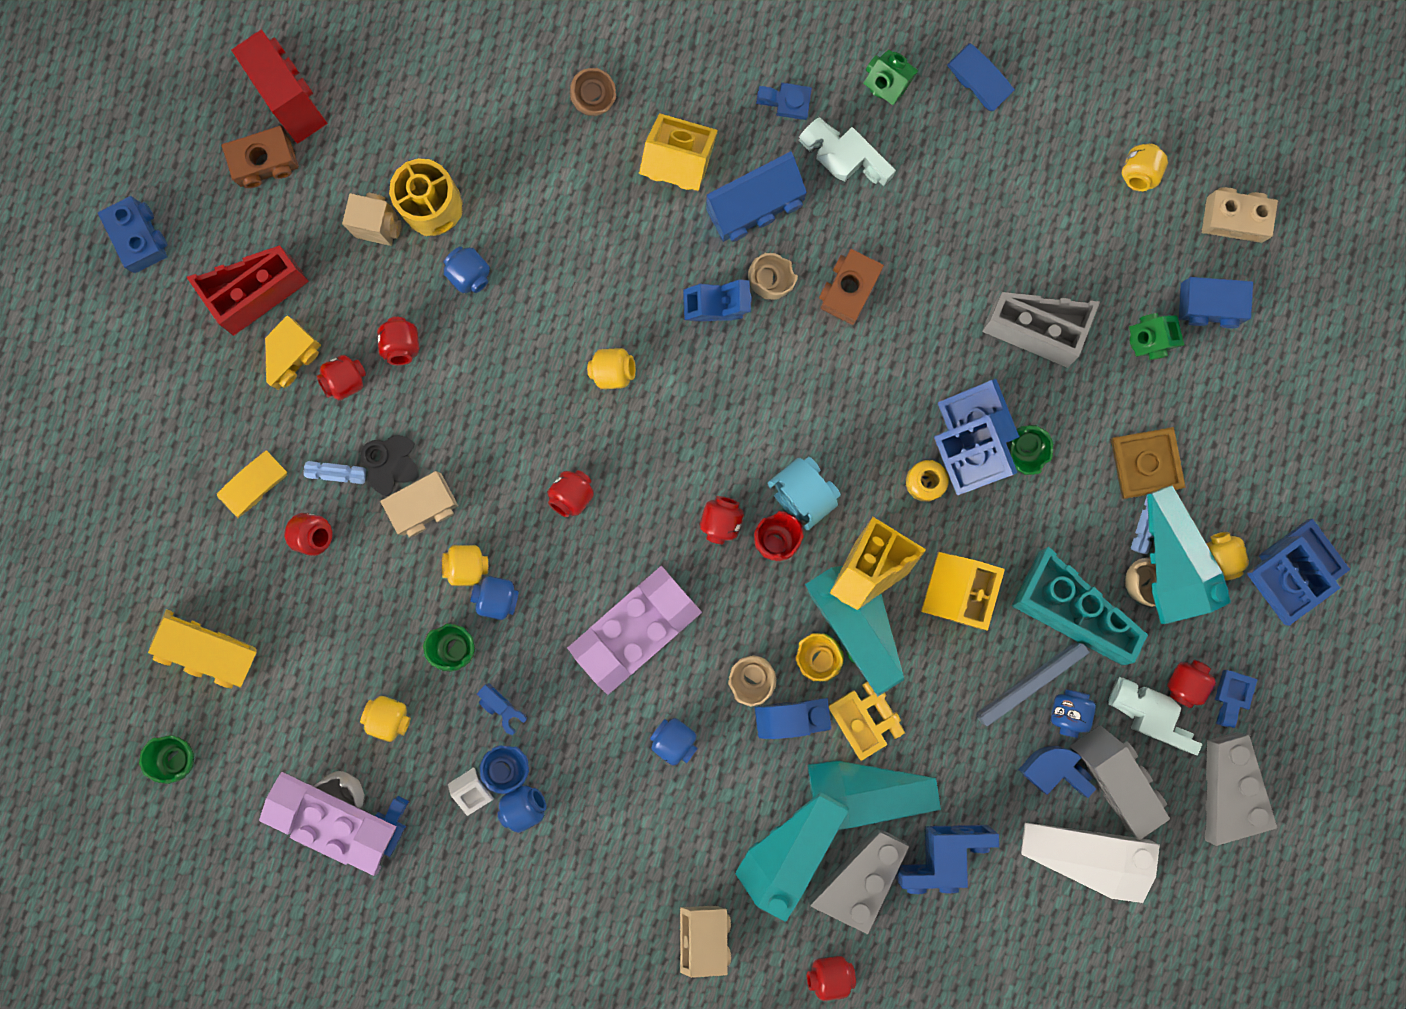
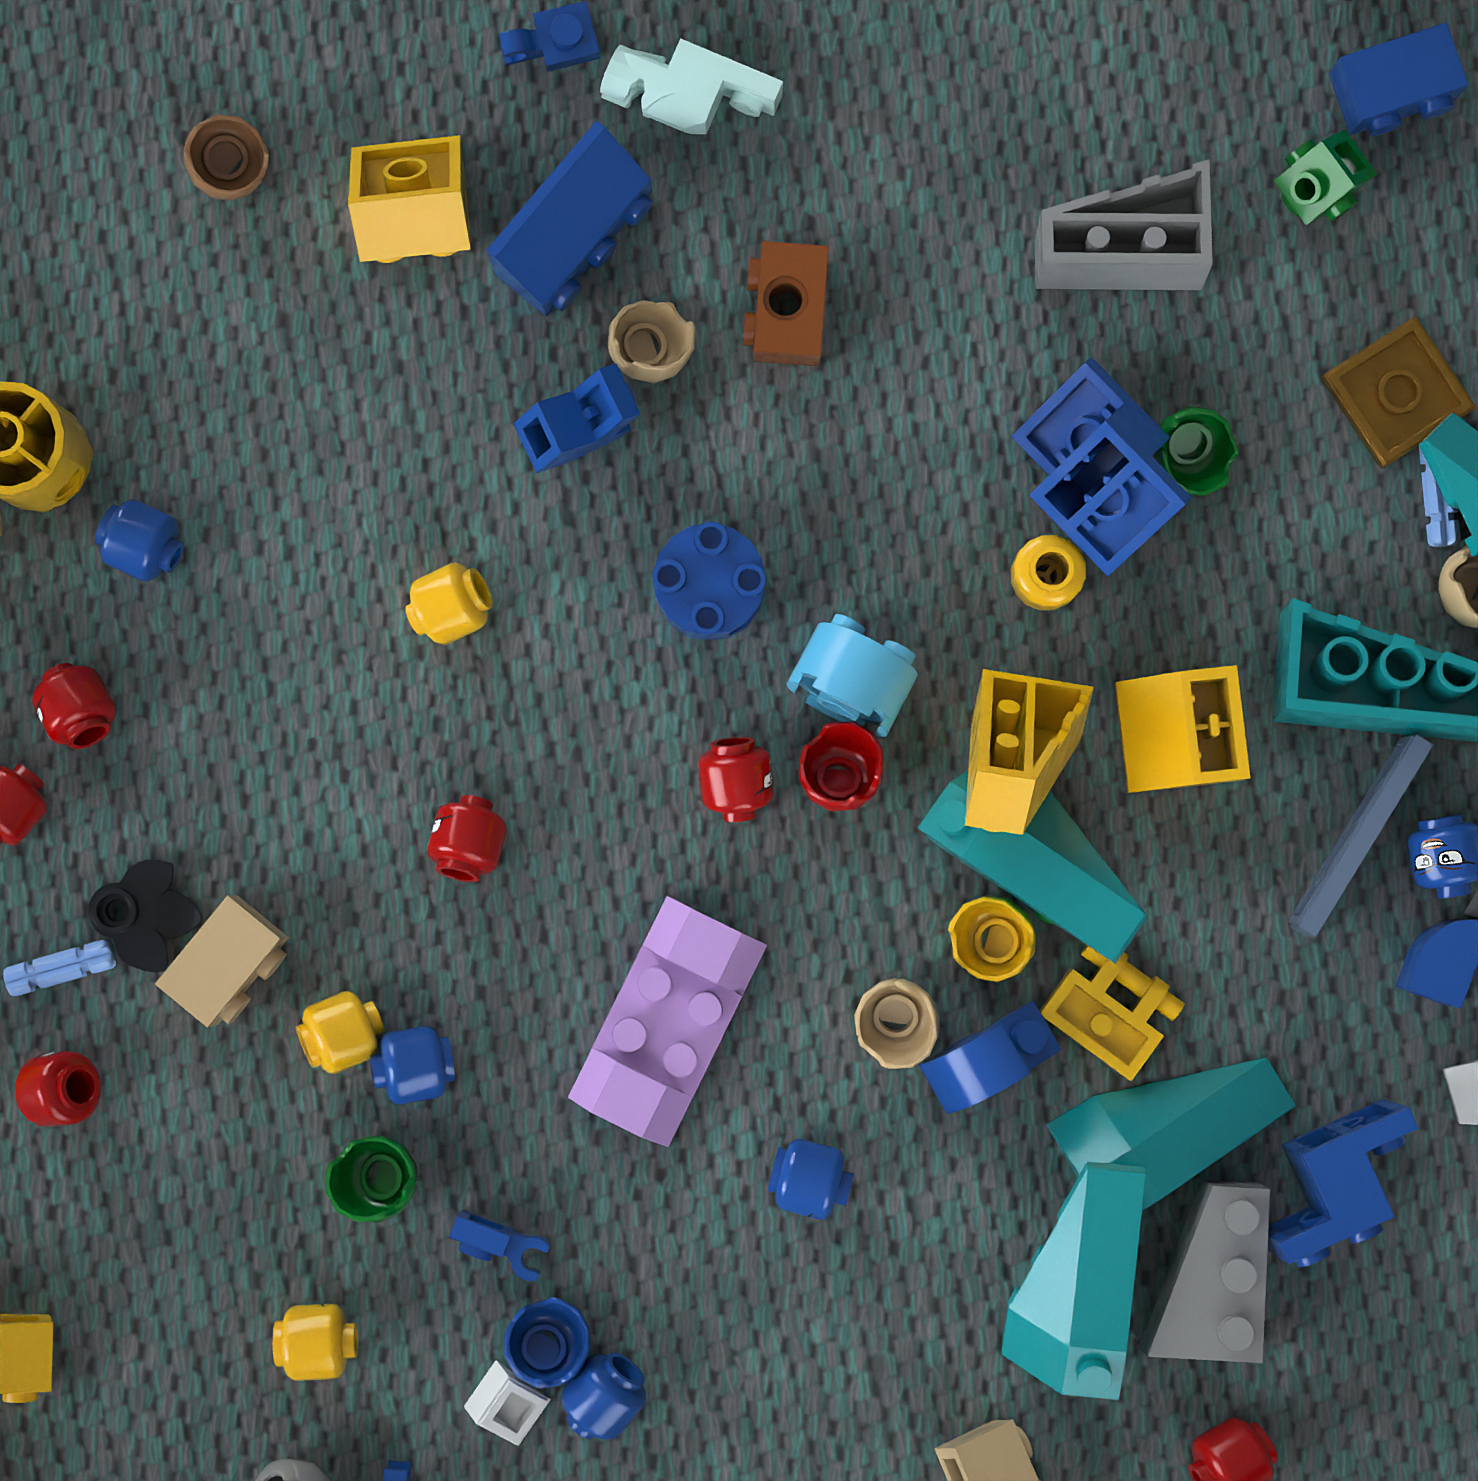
camera: 20 degrees left, 0 degrees up
(750, 412) = (709, 581): none -> blue brick

